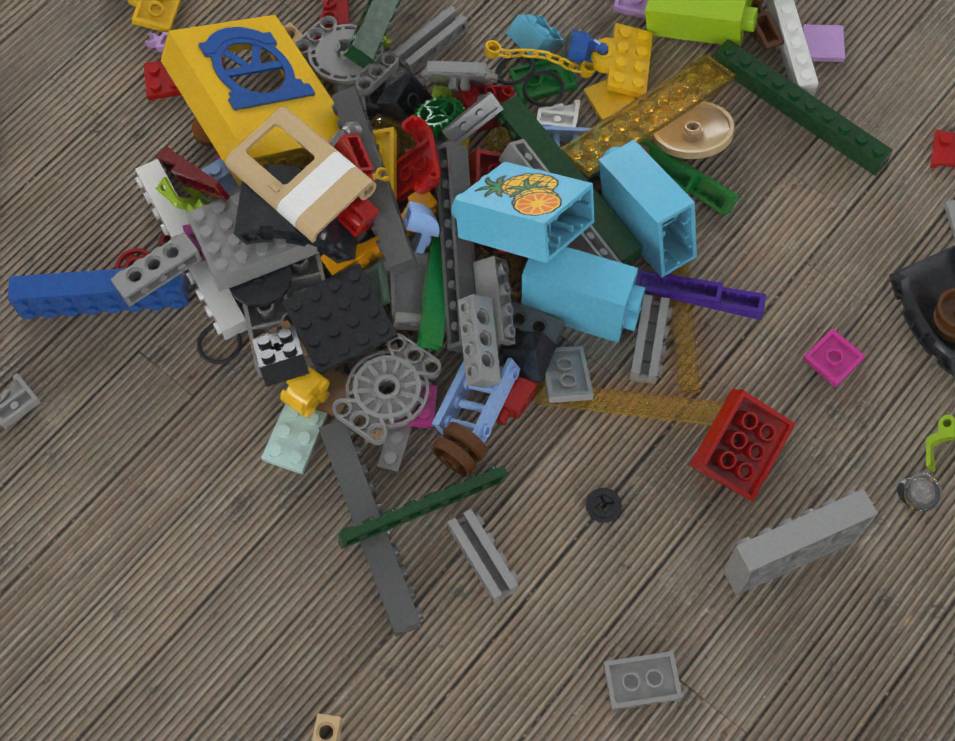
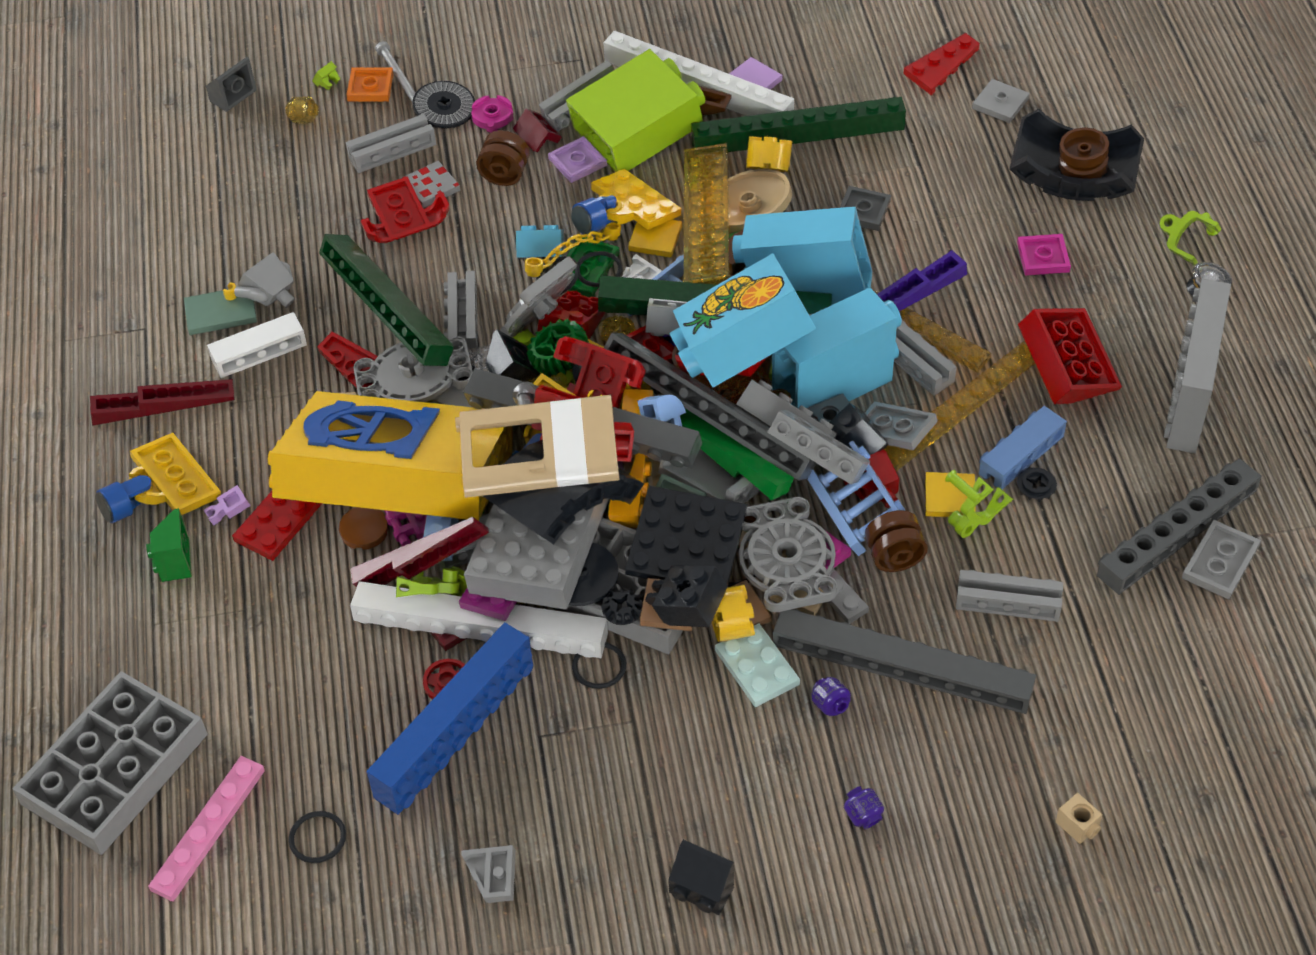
camera: 50 degrees left, 15 degrees down
(94, 527) = (701, 878): none -> black slope
(101, 39) = (170, 548): none -> green slope
(153, 279) = (495, 673): light grey brick -> none
(228, 585) = (864, 807): none -> dark purple head
(246, 328) = (625, 615): none -> black gear
(301, 501) = (831, 696): none -> dark purple head
(414, 509) = (924, 608): dark green plate -> none
(472, 118) = (593, 310): light grey piece -> none
(526, 478) = (967, 523): none -> lime piece
(544, 454) = (943, 497): none -> yellow tile
(627, 472) = (1022, 447): none -> medium blue brick
(706, 648) = (1178, 526): none -> dark grey brick
(745, 109) = (769, 154): none -> yellow brick
(763, 206) = (870, 206): none -> dark grey plate

